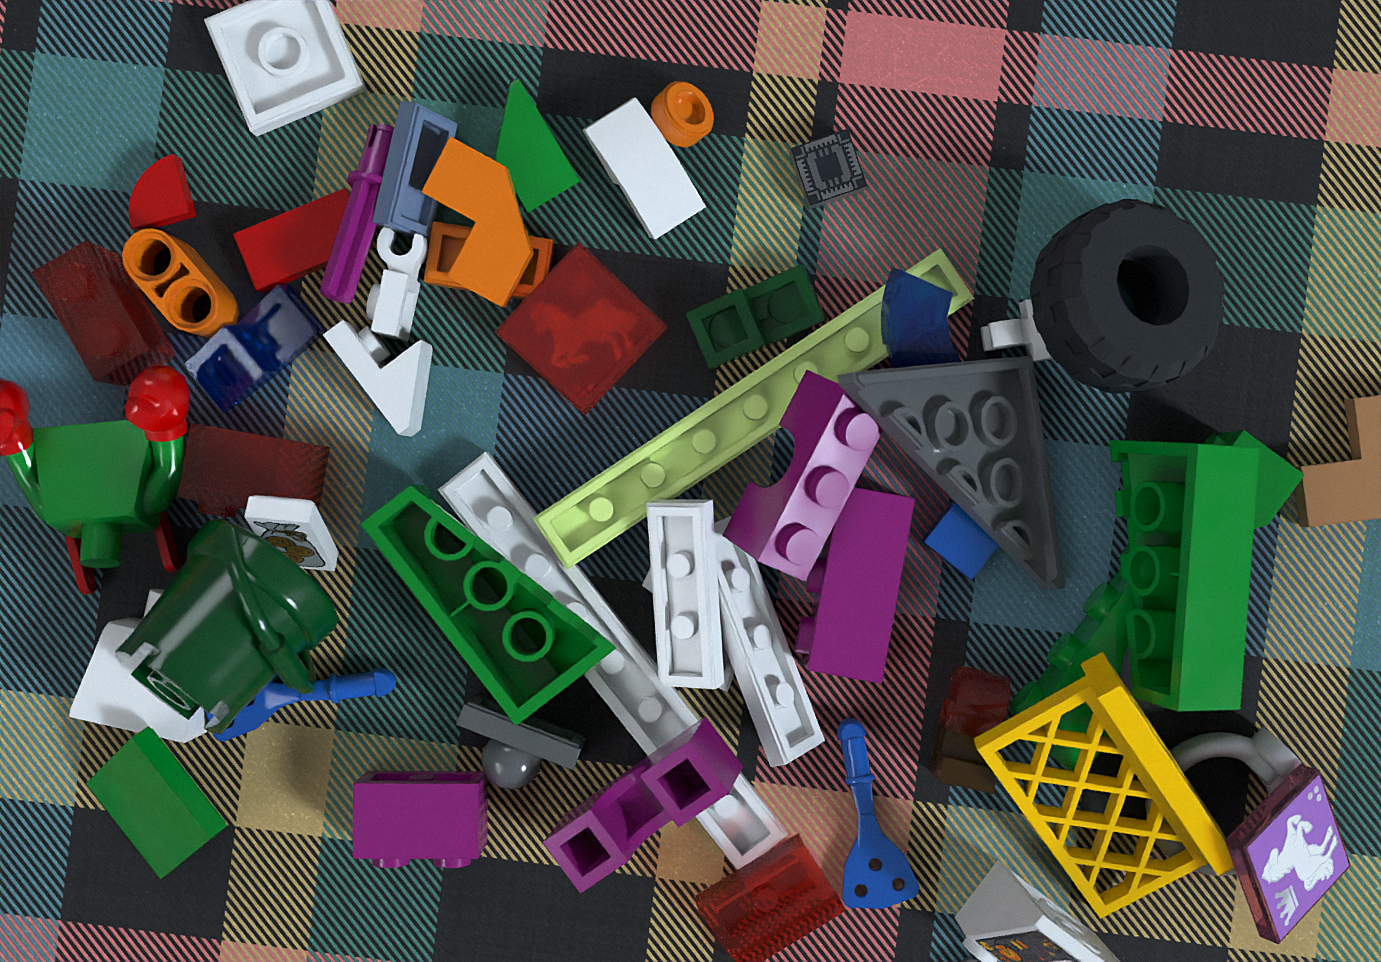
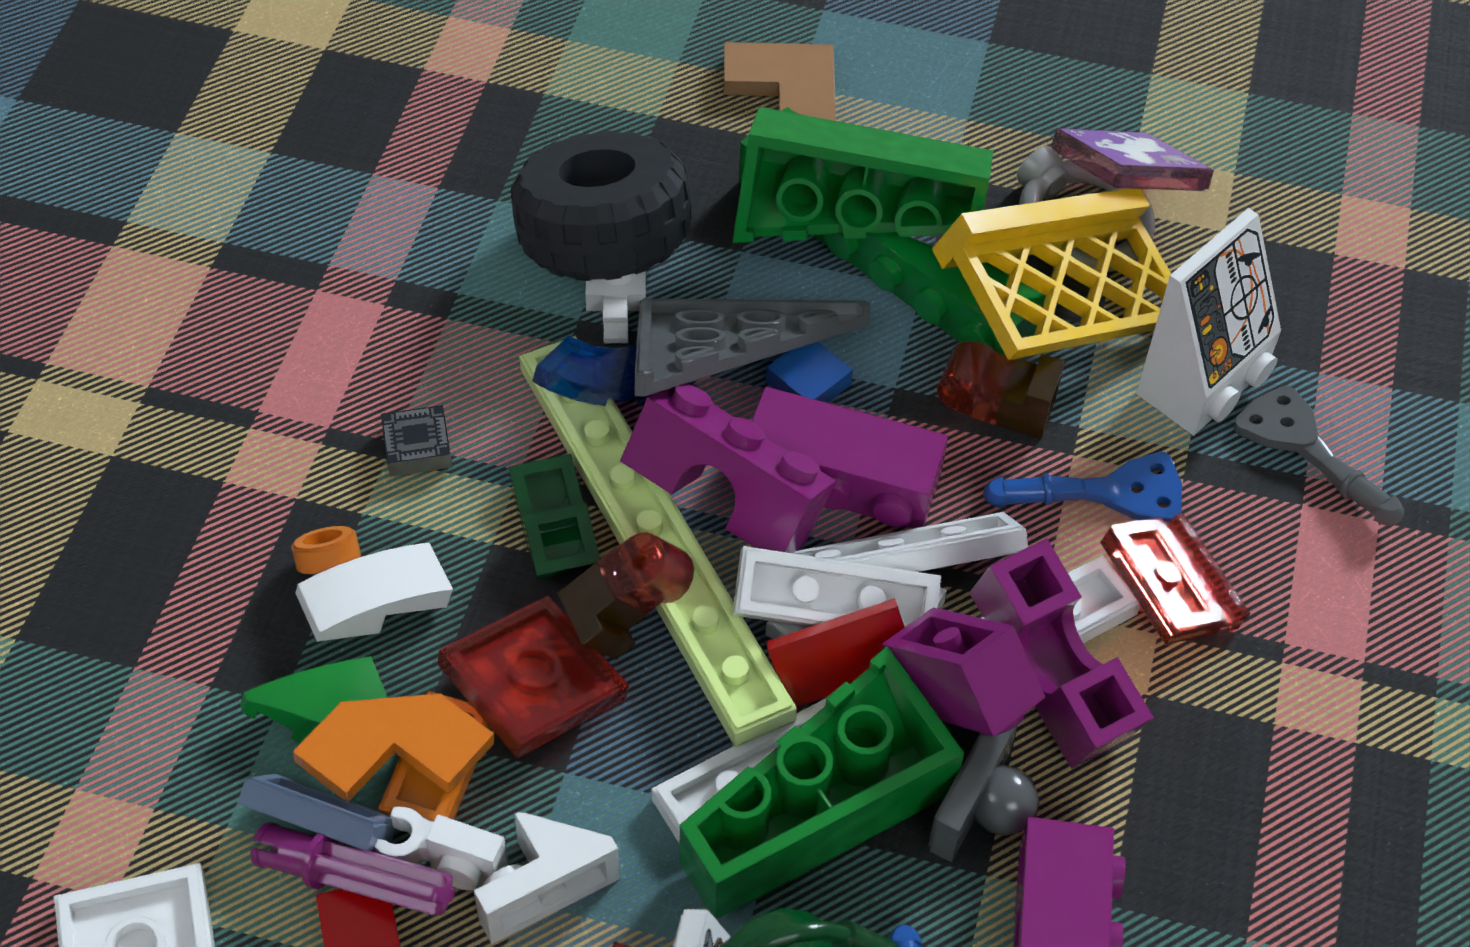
camera: 90 degrees left, 35 degrees down
(594, 721) = (968, 670): none -> magenta brick
(630, 604) = (834, 652): none -> red tile
(672, 409) = (624, 590): none -> leg

